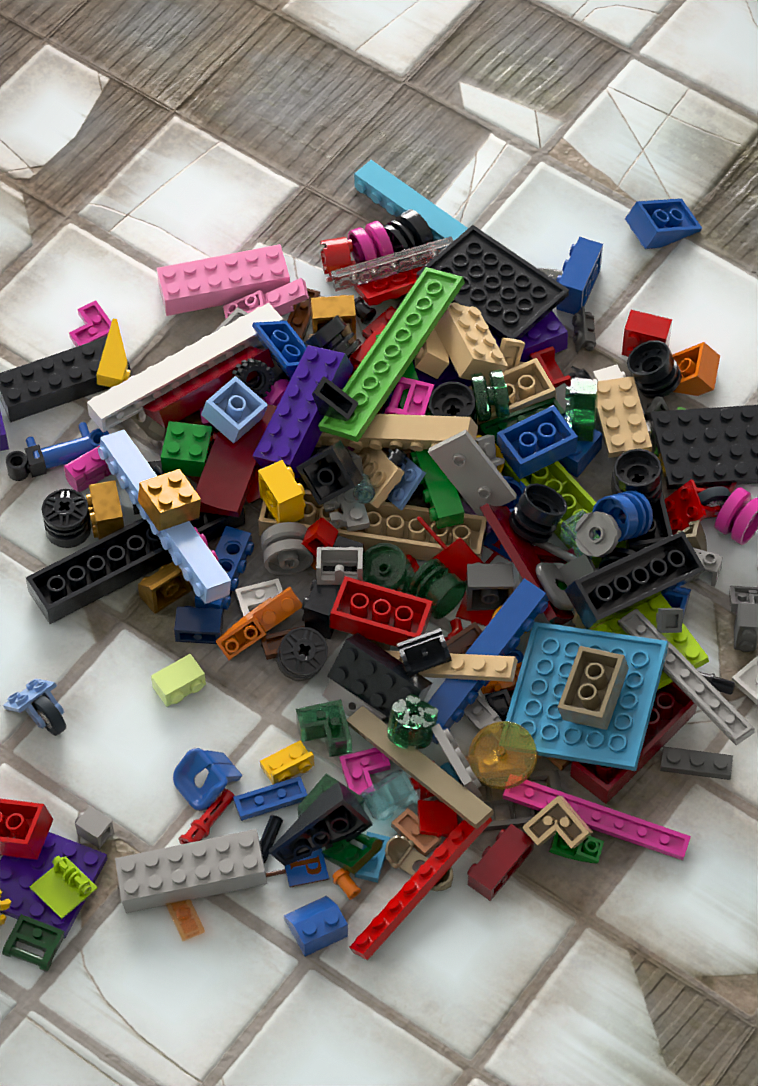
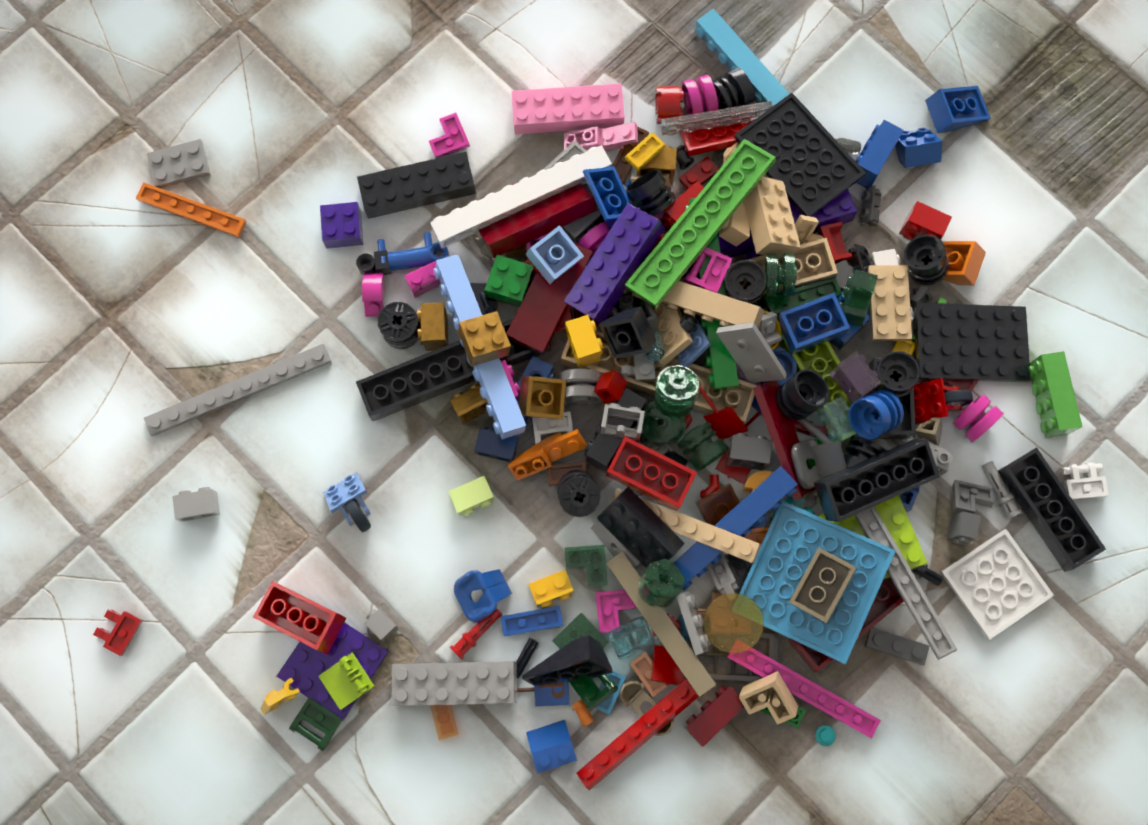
camera: 10 degrees right, 20 degrees up
(30, 493) = (373, 293): none -> dark pink brick
(113, 363) = (459, 184): yellow slope -> none
(245, 559) = (542, 397): none -> pearl gold brick
(263, 372) = (571, 215): black tyre -> none
(318, 300) = (645, 151): none -> yellow plate
(333, 401) = (641, 266): black slope -> none
(395, 527) = (676, 391): none -> clear green wheel
(424, 652) = (682, 521): black hinge -> none
(585, 534) = (862, 429): light grey plate -> none
(590, 482) = (855, 377): none -> brick
(626, 265) = (918, 148): none -> blue slope
(631, 865) = (825, 735): none -> teal plate
(669, 620) = (900, 525): dark grey tile -> none

